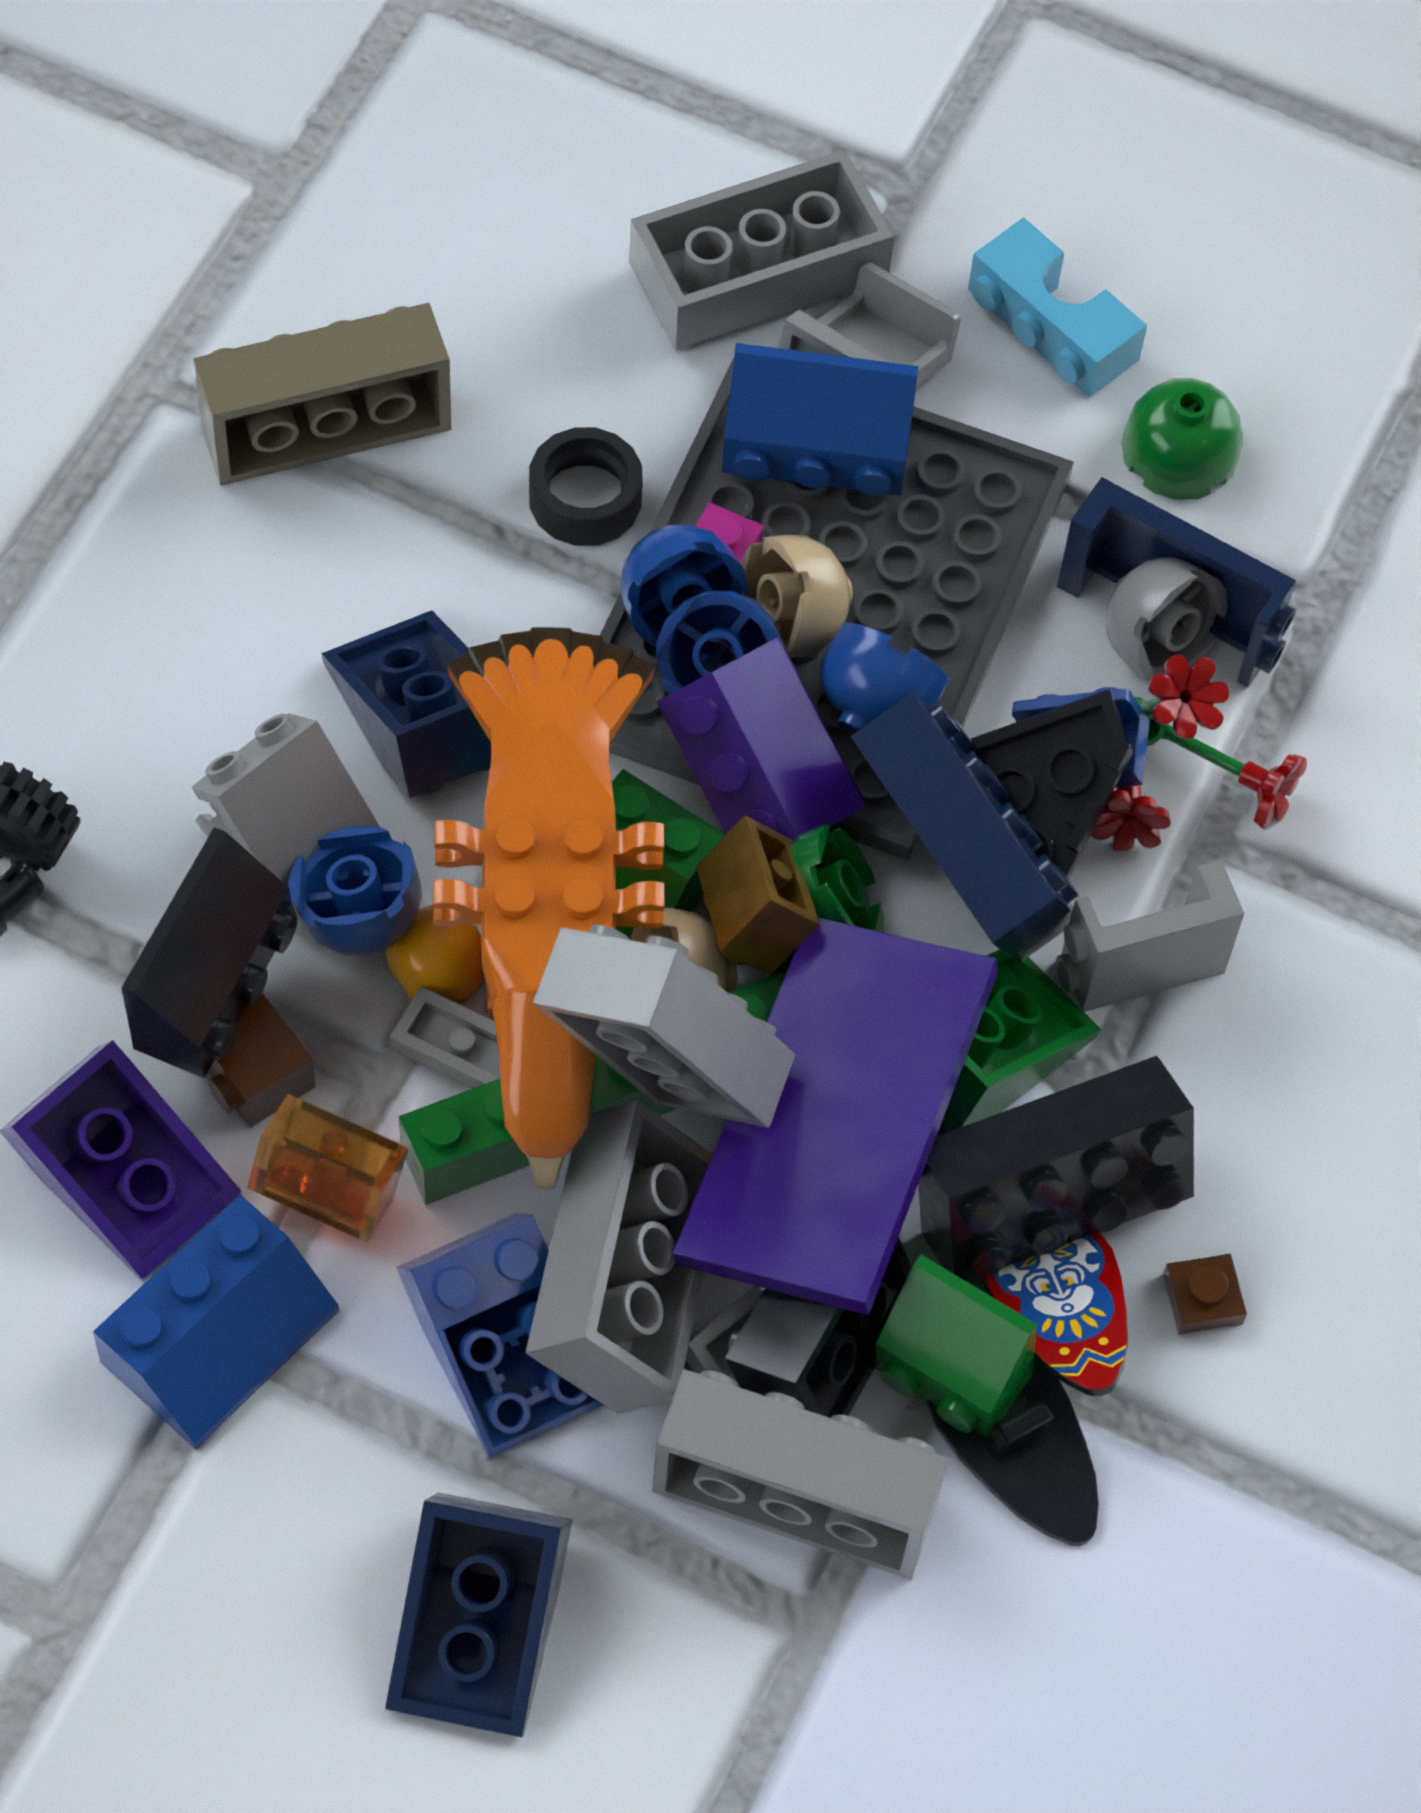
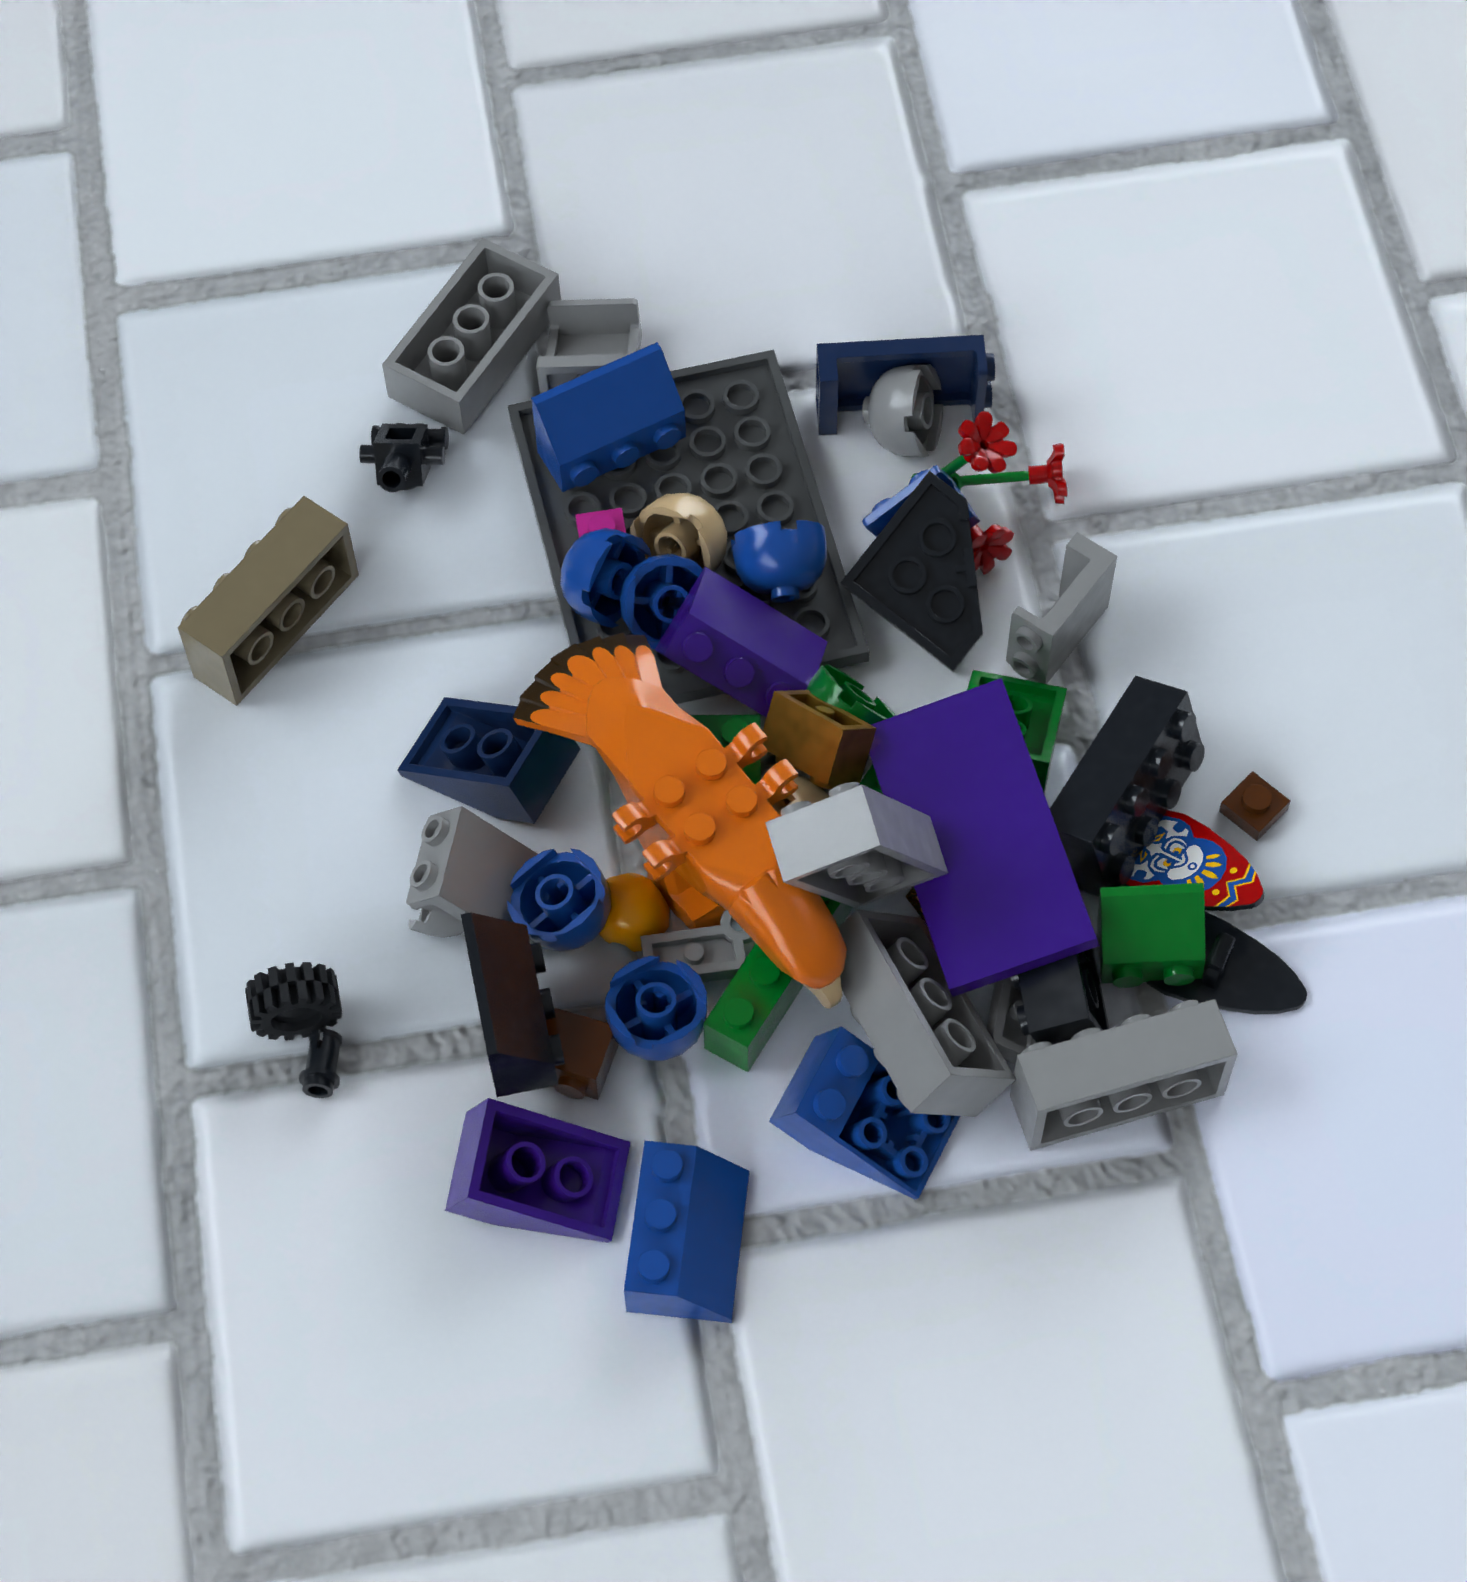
camera: 30 degrees left, 0 degrees up
(327, 1168) = (680, 1088): clear orange brick -> none
(367, 1065) = (656, 1008): none -> blue cylinder
(477, 1613) = (995, 1295): dark blue slope -> none
(585, 448) = (474, 526): black tyre -> none
(589, 330) = (404, 453): none -> black piece
(970, 834) = (907, 610): dark blue brick -> none
(1083, 341) = (713, 273): medium azure arch -> none
(1183, 438) = (824, 294): green cylinder -> none

